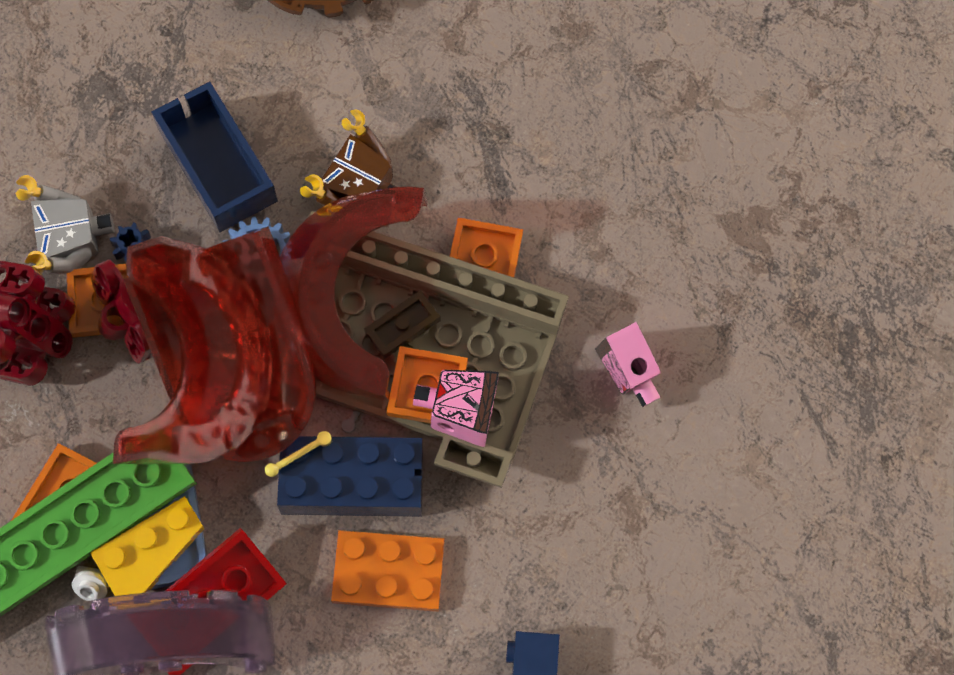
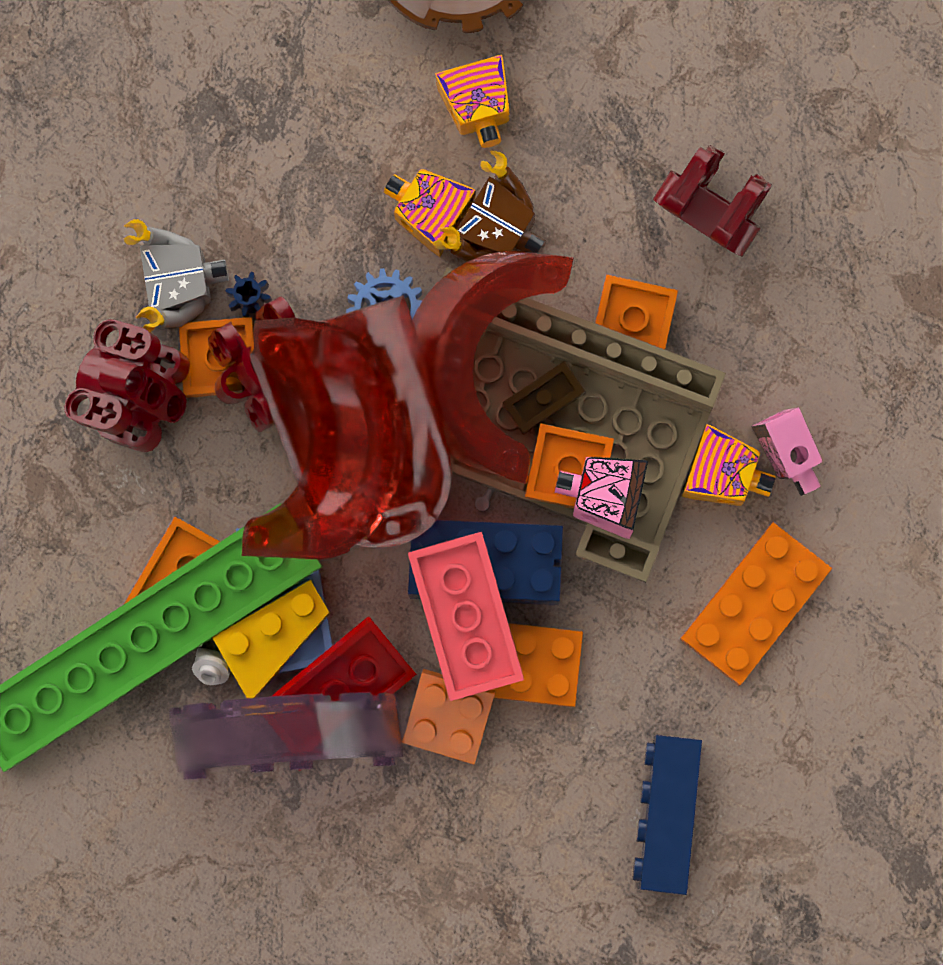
camera: 10 degrees right, 10 degrees up
(215, 157) = (339, 198): dark blue piece -> none
(295, 159) = (429, 205): none -> torso
(318, 622) = (446, 725): none -> orange plate
(324, 439) = (458, 525): light yellow hinge -> none
(331, 522) = (465, 616): none -> coral plate
(338, 71) = (476, 98): none -> torso
(531, 146) = (707, 211): none -> dark red piece
(572, 387) = (725, 470): none -> torso
(605, 509) = (756, 604): none -> orange plate

